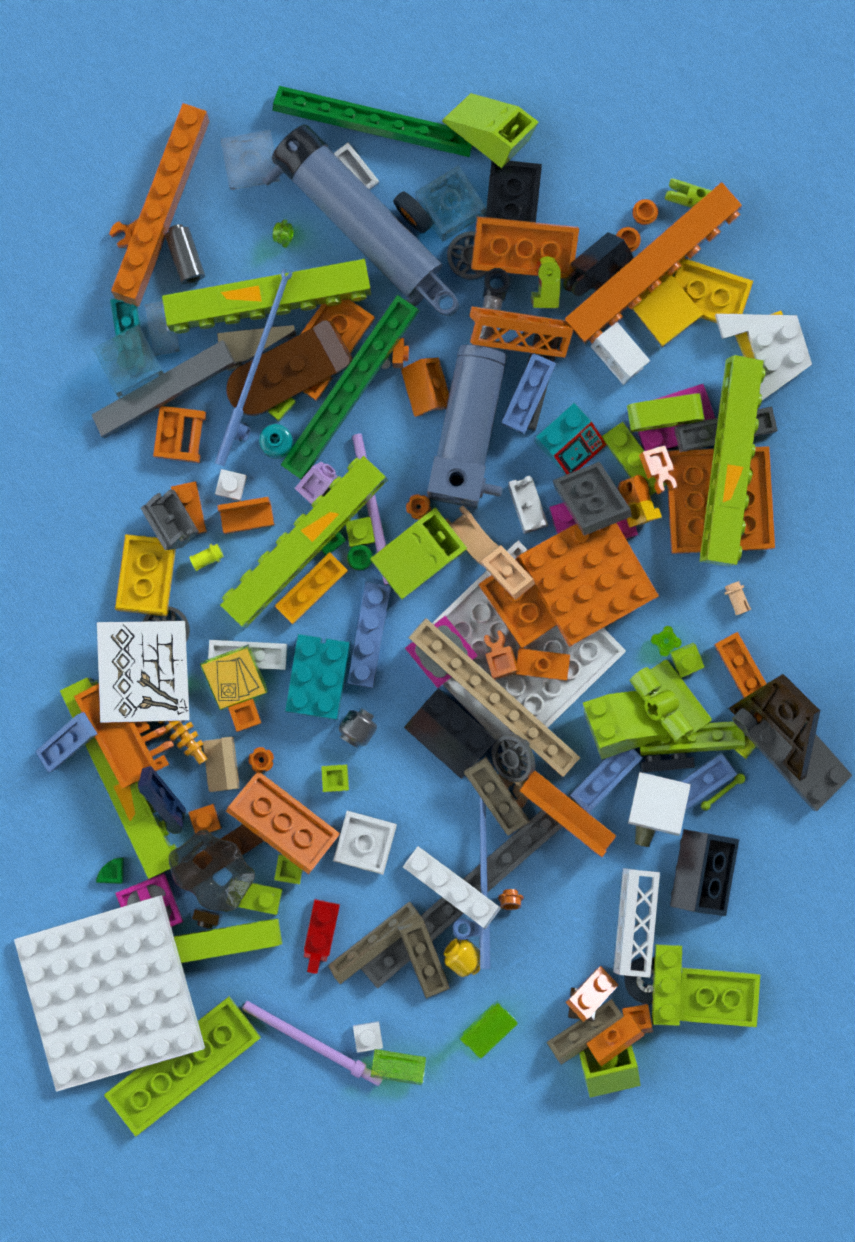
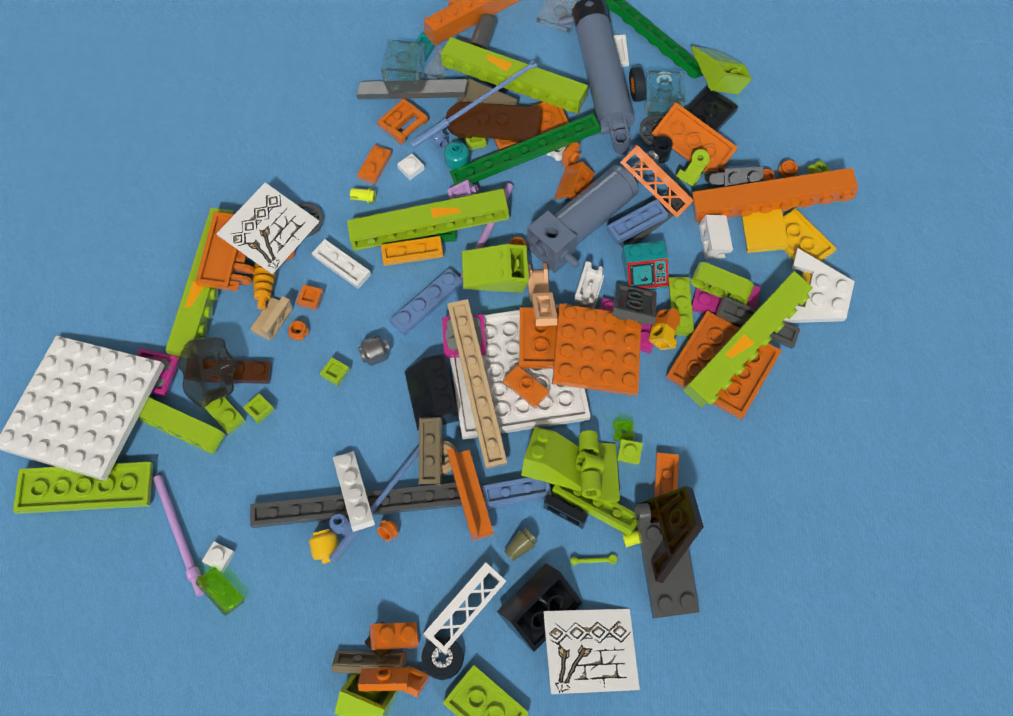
camera: 35 degrees right, 20 degrees down
(66, 742) = (188, 237): medium blue plate -> none
(112, 872) = (150, 337): green tile -> none
(145, 576) = (318, 182): yellow tile -> none
(162, 799) = (214, 306): dark blue plate -> none
(169, 520) = (356, 158): dark grey hinge -> none
(205, 819) = (235, 343): orange plate -> none
(206, 918) = (180, 402): dark brown plate -> none
(234, 677) = (321, 268): yellow tile -> none
(246, 515) = (406, 185): orange panel -> none
(283, 233) = (549, 55): clear neon green plate -> none
(283, 822) = (278, 375): orange plate -> none
(317, 677) = (373, 302): teal piece -> none
(320, 933) = (244, 465): red hinge -> none
(359, 557) = (454, 253): green tile -> none
(360, 532) = (468, 239): lime plate -> none
(365, 842) = (321, 425): white plate -> none
(372, 943) = (273, 493): dark tan tile -> none
(423, 957) = (297, 526): dark tan tile -> none
(488, 1029) = (302, 610): clear neon green panel -> none
(501, 659) = (500, 364): orange plate -> none
(513, 757) = (460, 431): dark grey wheel -> none
(658, 465) = (695, 314): plate -> none
(659, 804) = (540, 531): white tile -> none
(667, 984) = (452, 668): lime plate -> none
(708, 778) = (577, 541): medium blue plate -> none
(737, 598) = (694, 434): light nougat pin -> none
(778, 880) = (590, 651): none -> white sticker

